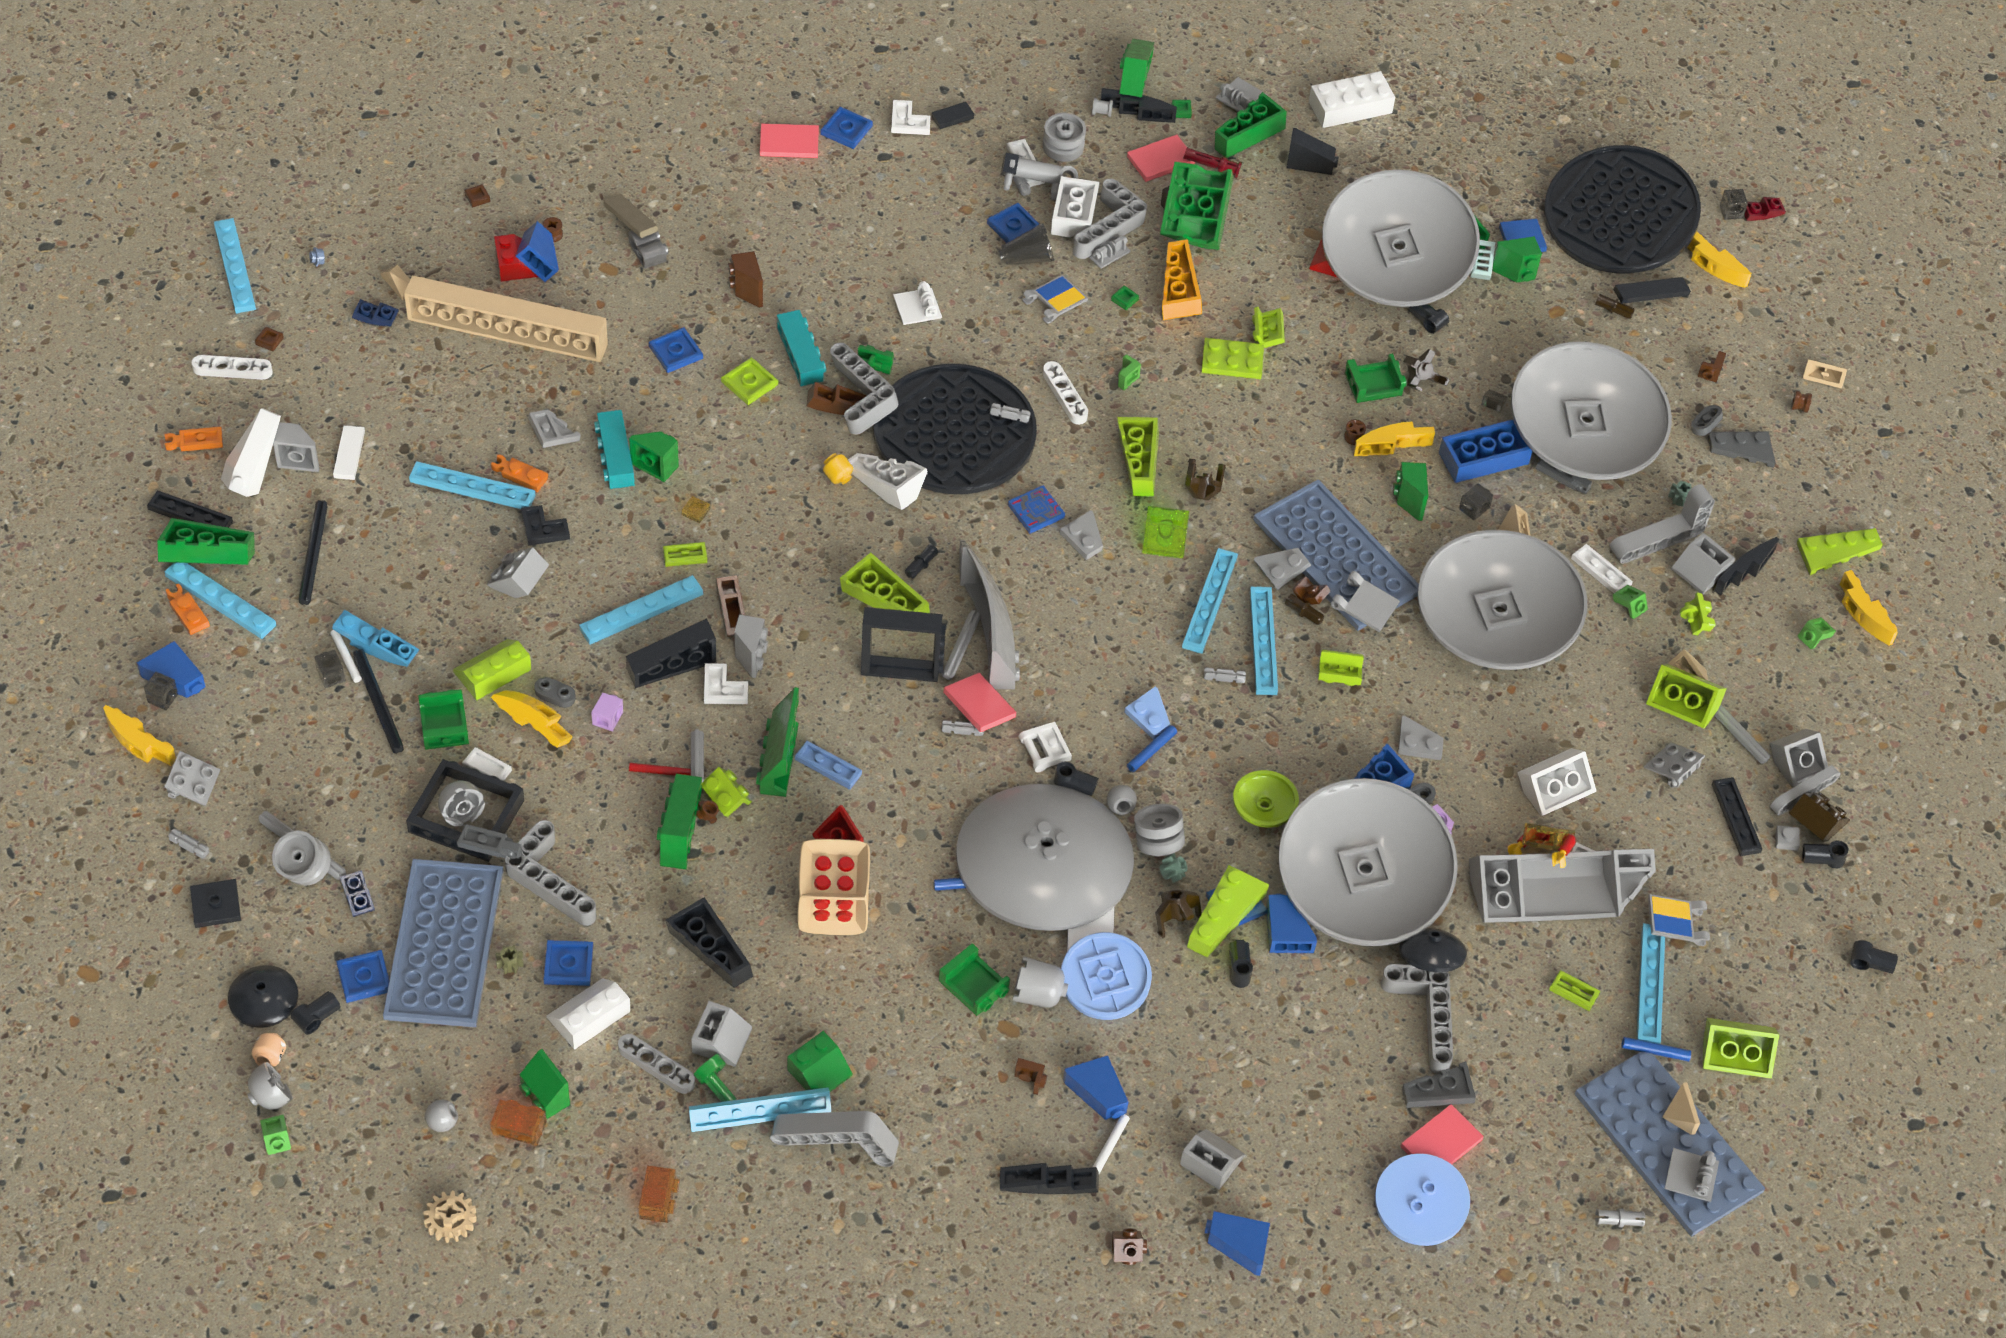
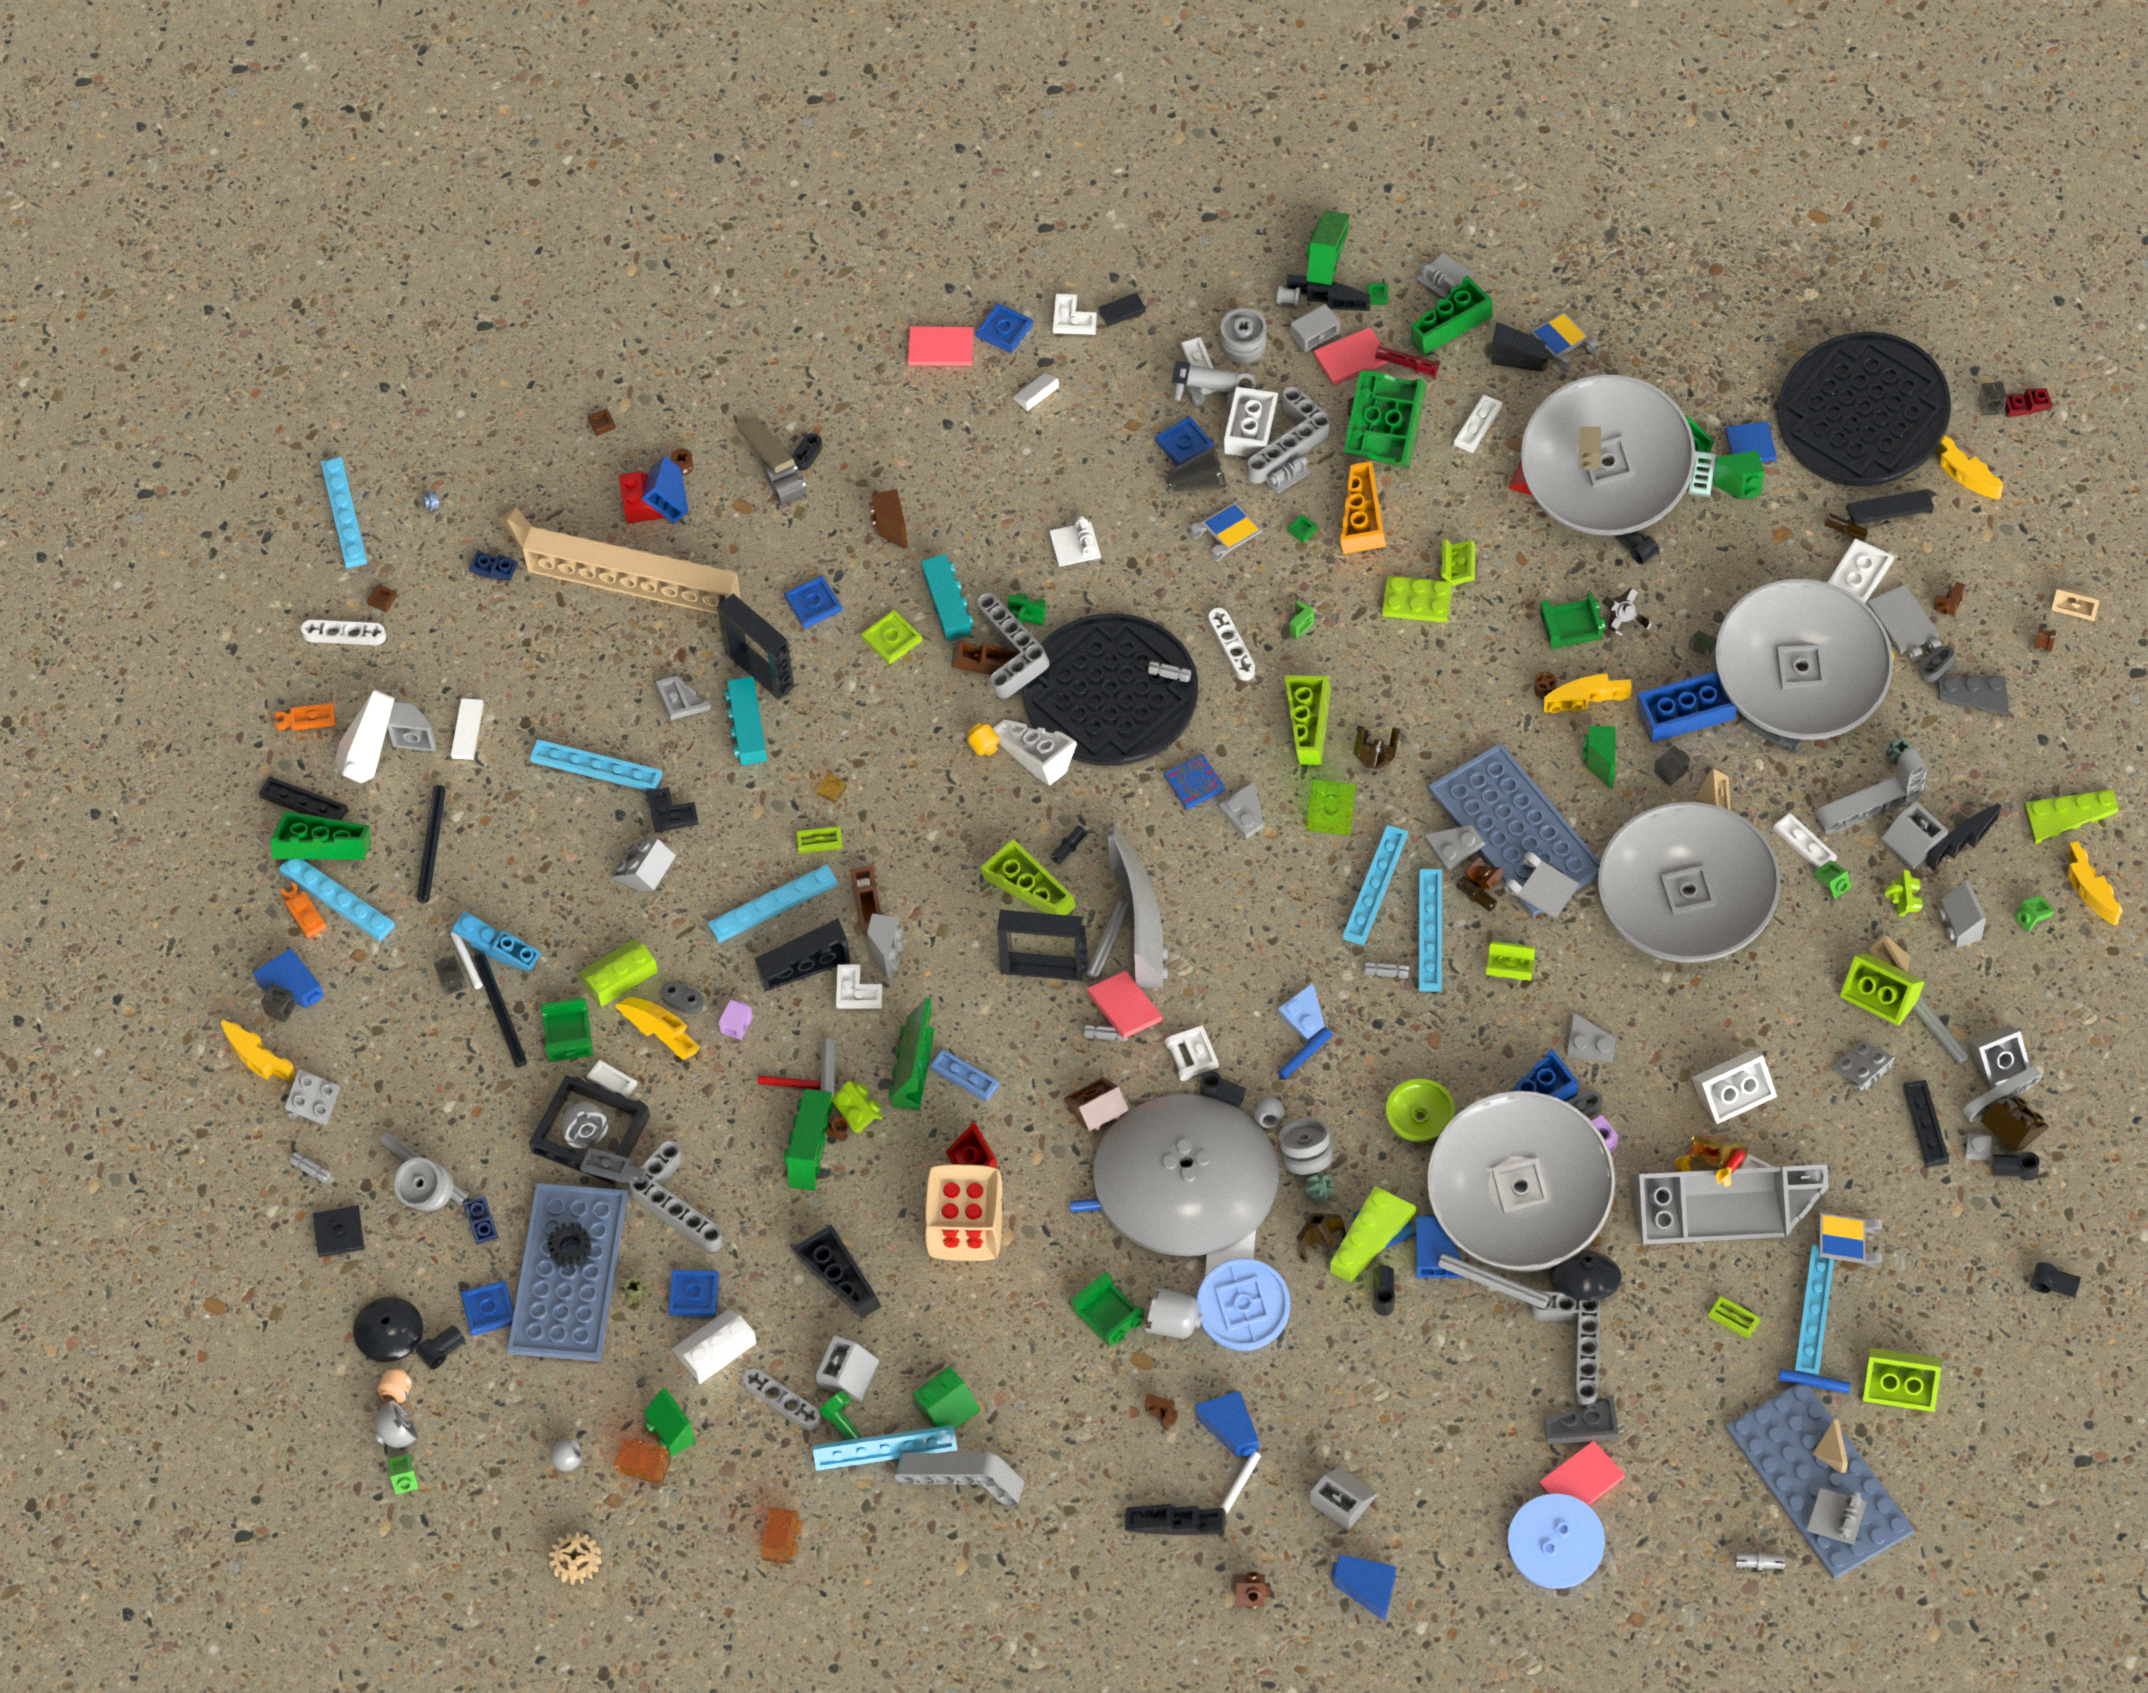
camera: 10 degrees right, 5 degrees up
(450, 926) = (566, 1233): none -> black tyre
(520, 473) = (647, 749): orange plate -> none
(609, 349) = (739, 619): none -> black window
(655, 454) = (788, 727): green slope -> none
(672, 226) = (810, 454): none -> black beam
(878, 179) = (1036, 391): none -> white slope
(957, 791) = (1097, 1104): none -> slope
(1128, 132) = (1315, 328): none -> light grey brick
(1278, 215) = (1478, 423): none -> white tile
(1346, 953) = (1493, 1281): none -> light grey axle
(1350, 147) = (1562, 337): none -> flag
(1351, 99) = (1569, 278): white brick -> none
(1387, 227) = (1590, 448): none -> dark tan brick
(1633, 338) = (1861, 569): none -> white tile
(1678, 386) = (1905, 622): none -> light grey tile
(1754, 632) = (1962, 915): none -> light grey slope

